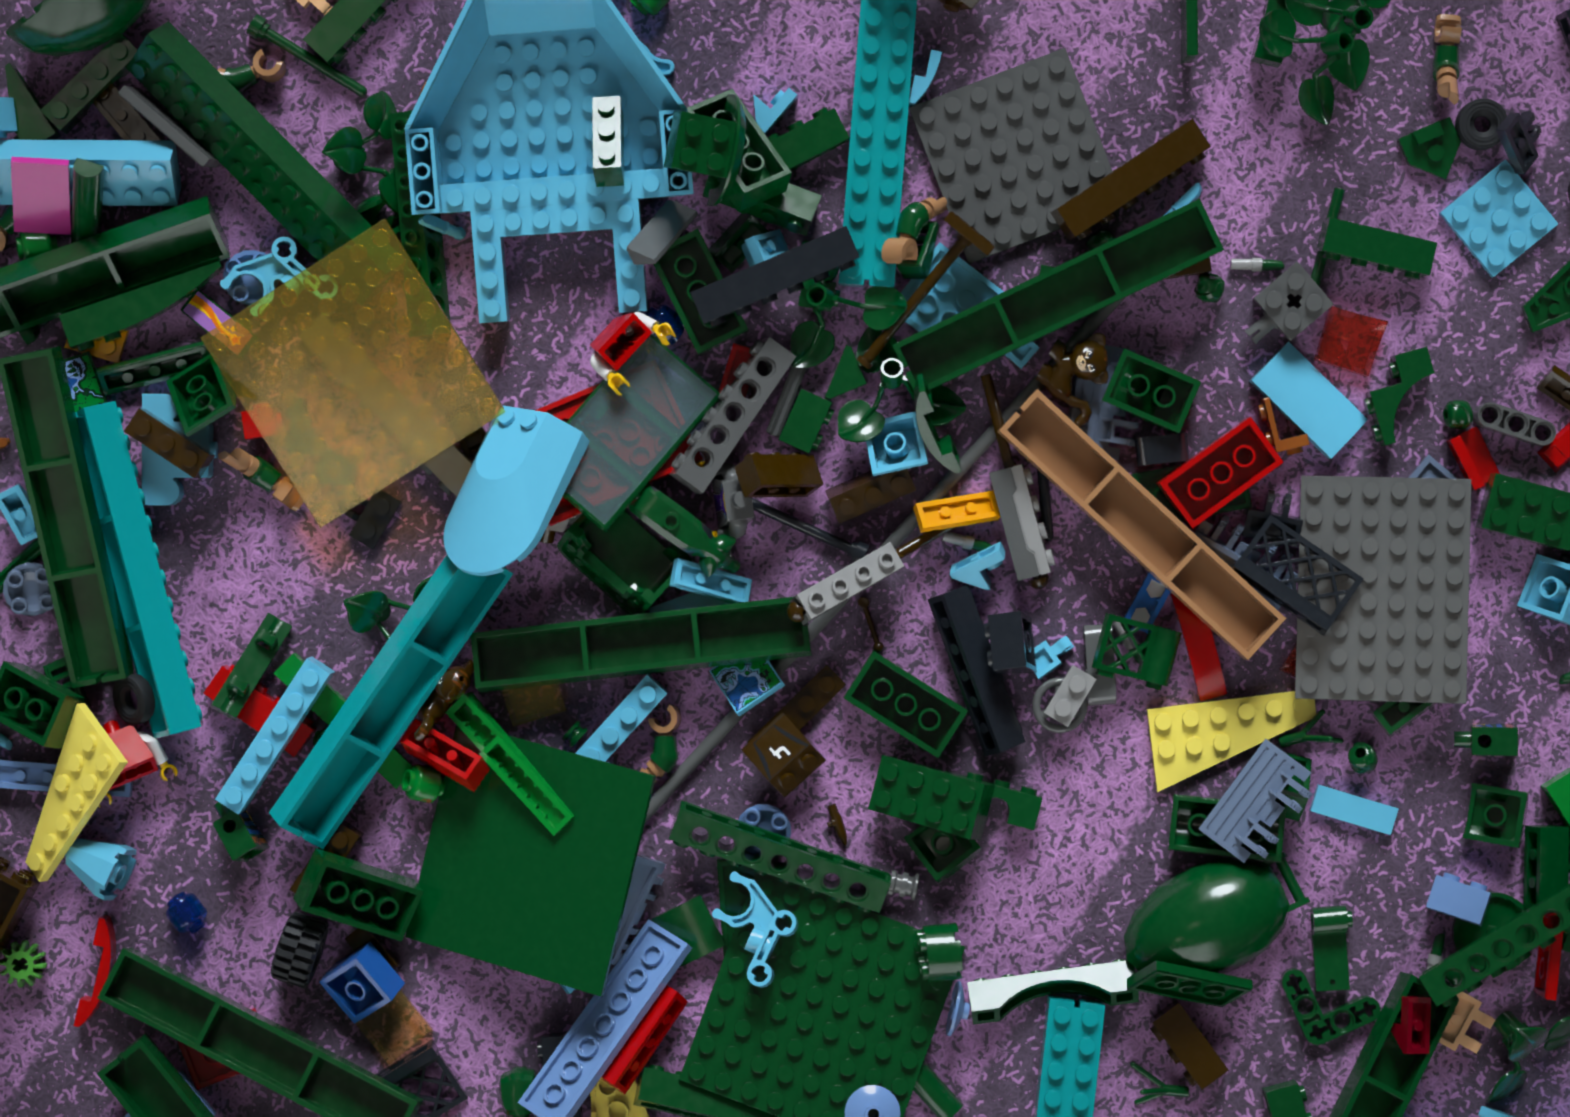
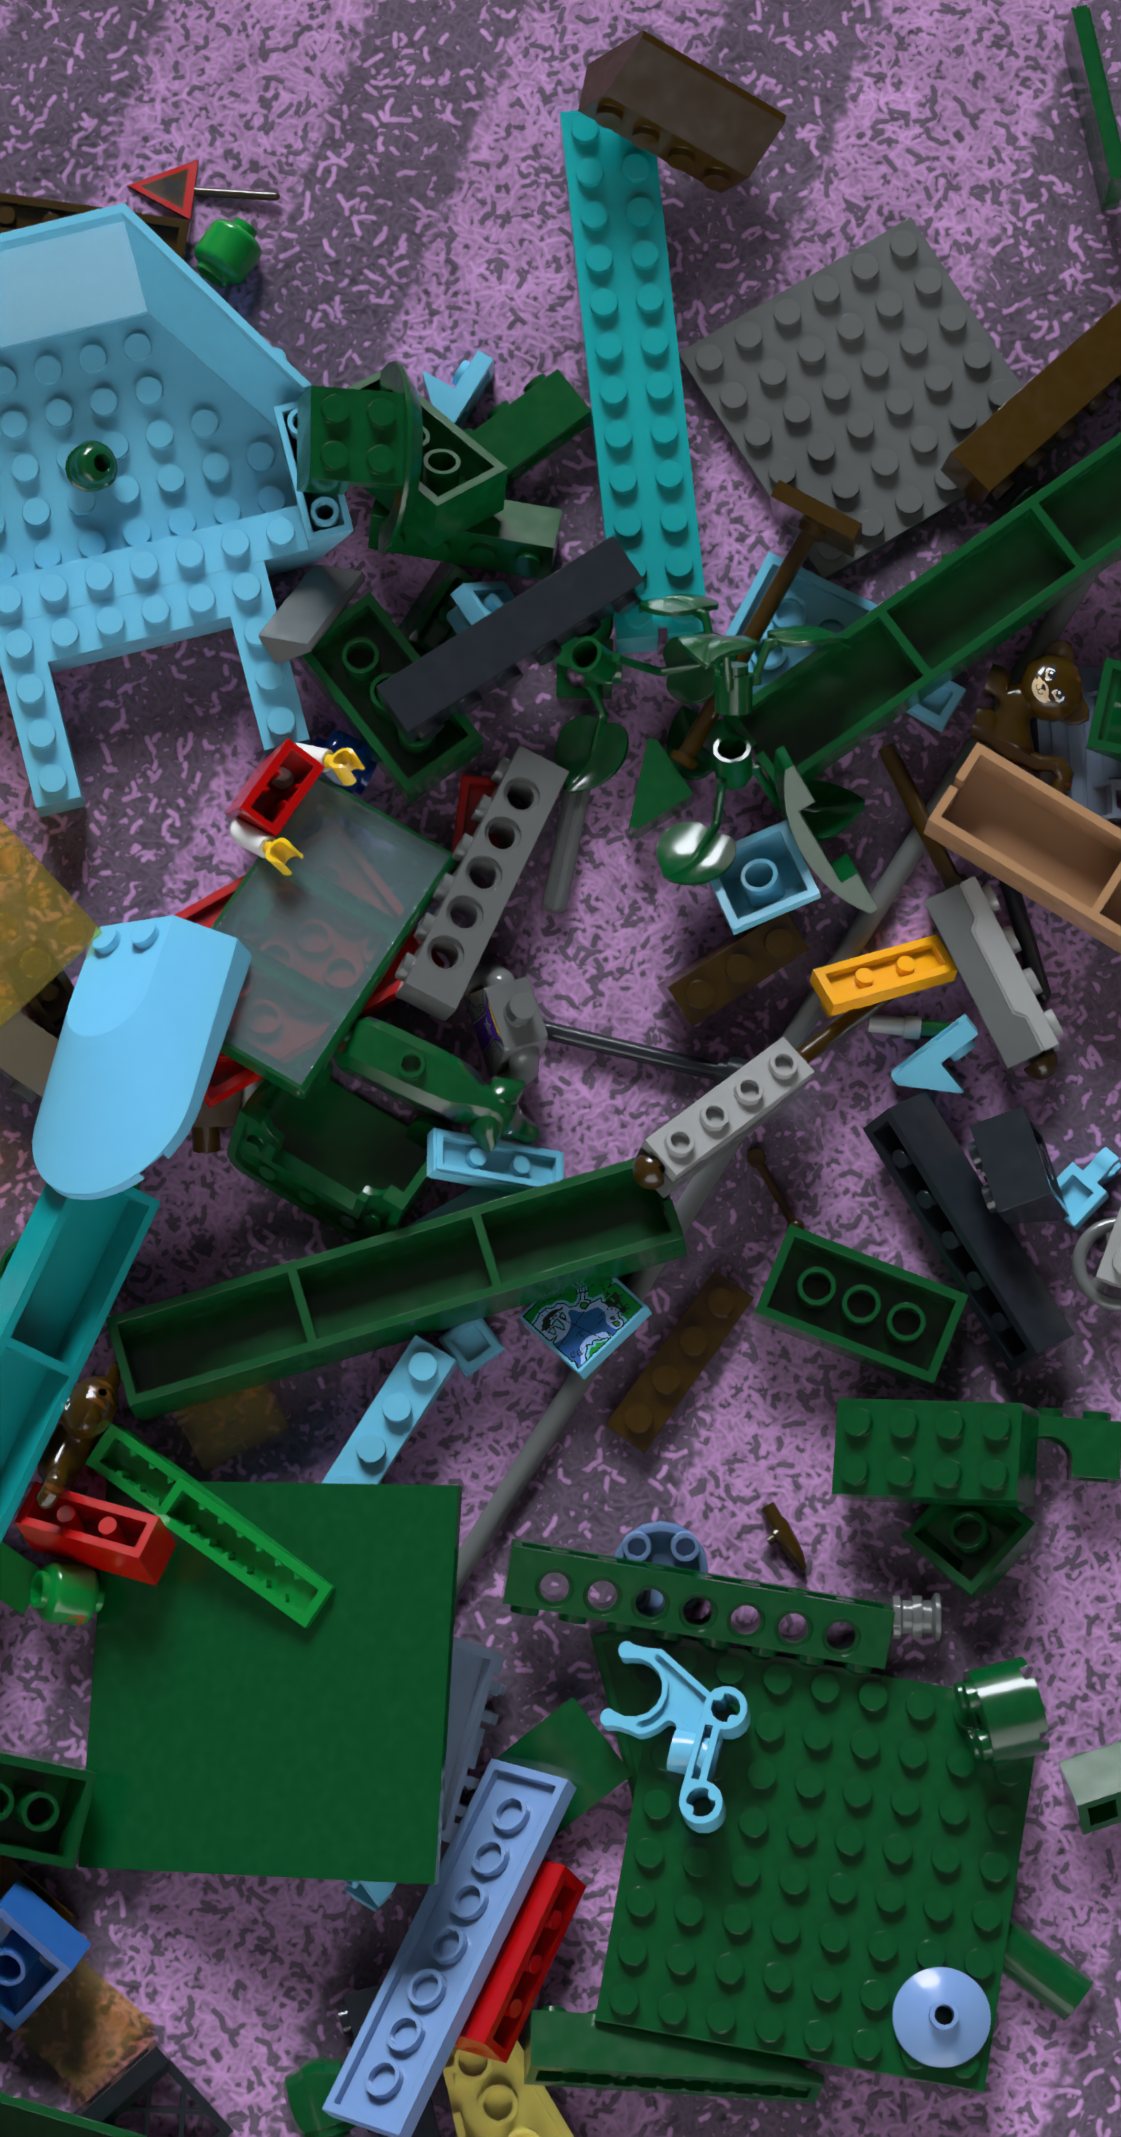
camera: 10 degrees left, 10 degrees down
(546, 119) = (91, 466): none -> dark green piece
(574, 734) = (310, 1463): dark green bush -> none
(608, 141) = (198, 477): brick -> none
(665, 746) = (467, 1452): piece -> none
(678, 682) = (471, 1345): none -> medium azure tile
(778, 475) = (576, 963): dark brown brick -> none
(783, 754) = (671, 1429): dark brown slope -> none
(806, 421) = (605, 876): dark green brick -> none
(900, 322) = (732, 679): none -> dark green plant
(909, 227) = (716, 527): piece -> none
(921, 83) = (693, 308): medium azure slope -> none
(921, 268) = (737, 573): dark green slope -> none
(958, 1010) = (1052, 1810): medium blue dish -> none

